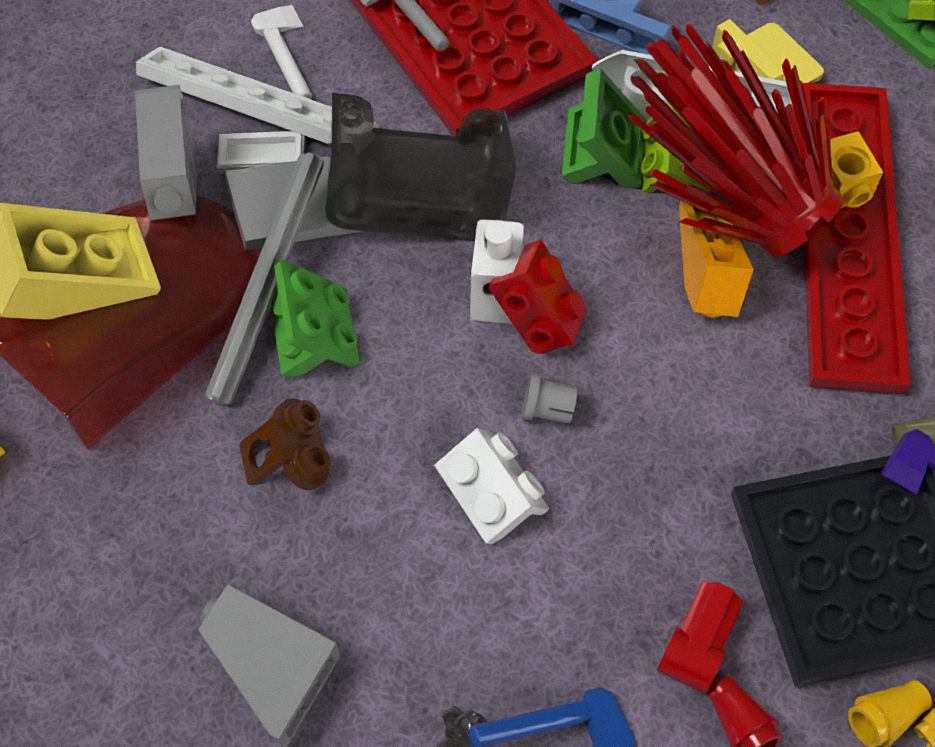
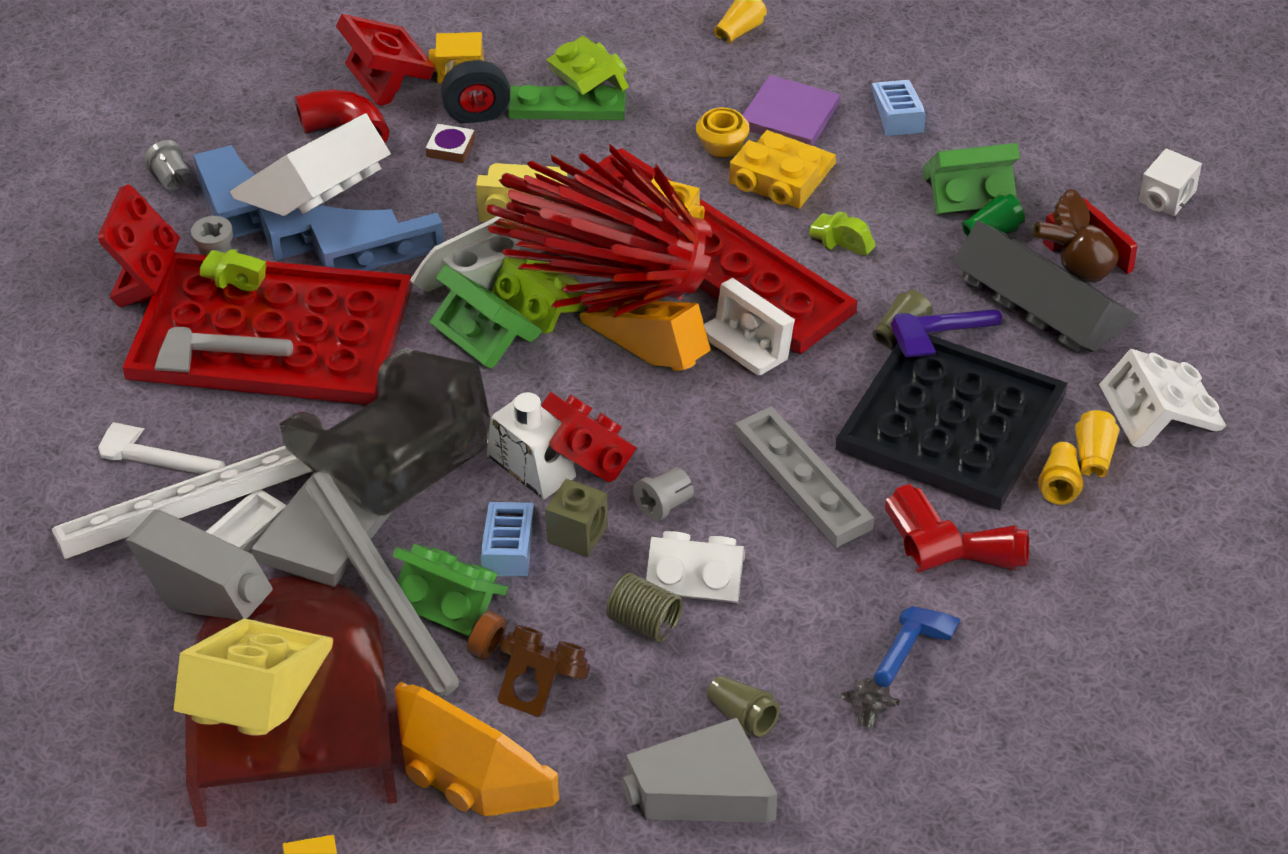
camera: 50 degrees left, 15 degrees down
(146, 461) = (468, 758): none -> light orange wedge
(286, 385) = (486, 634): none -> dark orange tile
(375, 636) = (745, 704): none -> olive cone
(390, 350) = (507, 560): none -> light blue slope
(408, 474) = (643, 606): none -> olive piece
(457, 357) = (576, 517): none -> olive brick
(670, 495) = (804, 477): none -> light grey plate
(784, 328) = (750, 328): none -> white bracket

